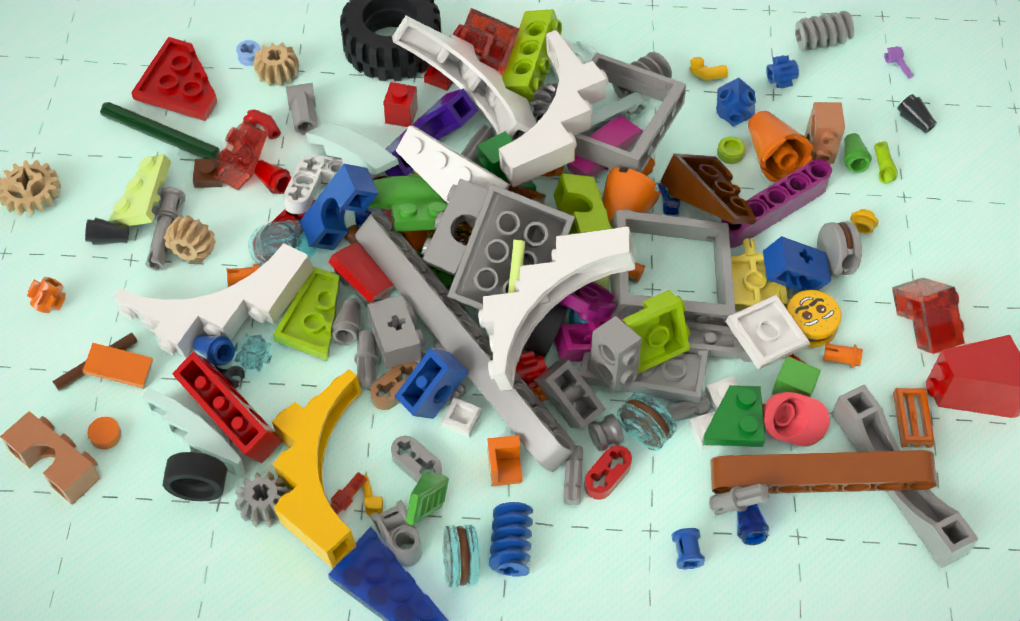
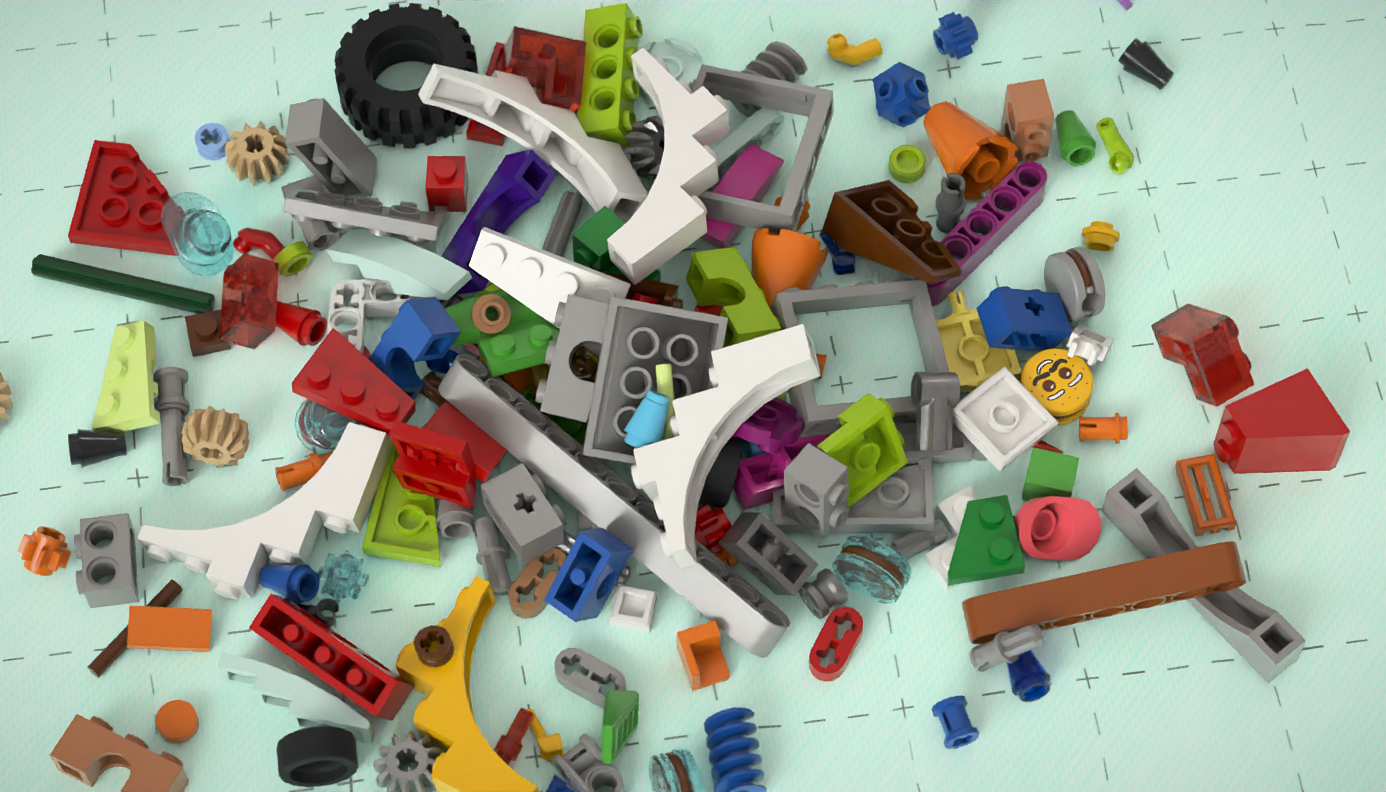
camera: 10 degrees left, 5 degrees up
(93, 311) = (114, 559): none -> light grey brick
(219, 106) = (198, 233): none -> clear light blue piece
(281, 134) = (293, 258): none -> lime tile
(294, 220) = (352, 386): none -> red wing
(308, 417) = (423, 641): none -> reddish brown bush
(323, 64) = (330, 149): none -> light grey brick
(336, 283) = (434, 464): none -> red slope
(367, 121) = (367, 213): none -> light grey wing
(400, 195) = (478, 314): none -> medium nougat plate
(499, 278) = (648, 420): none -> medium azure cone
(573, 477) = (794, 660): light grey axle -> none
(718, 305) = (934, 398): none -> flat silver piece
(757, 176) = (950, 202): none -> dark grey pin
(842, 293) = (1089, 344): none -> white plate

